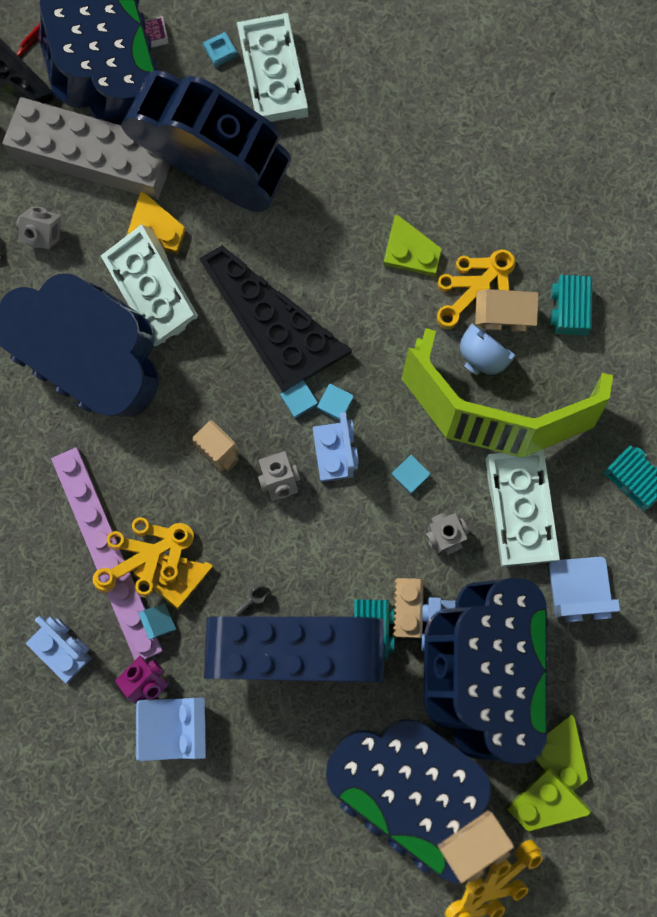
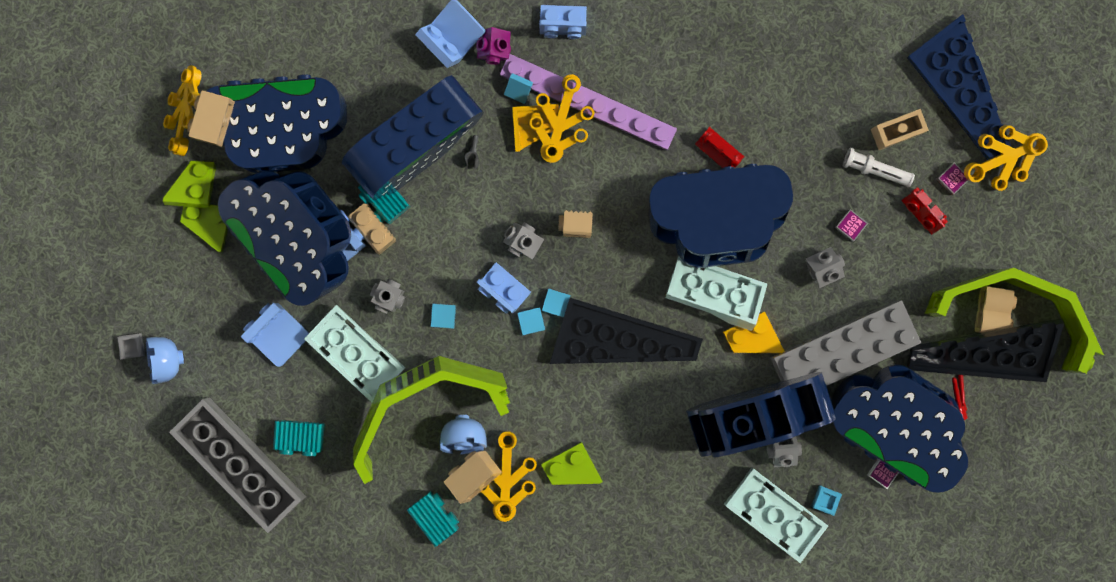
camera: 135 degrees right, 10 degrees up
(32, 407) = (719, 149): none -> red hinge

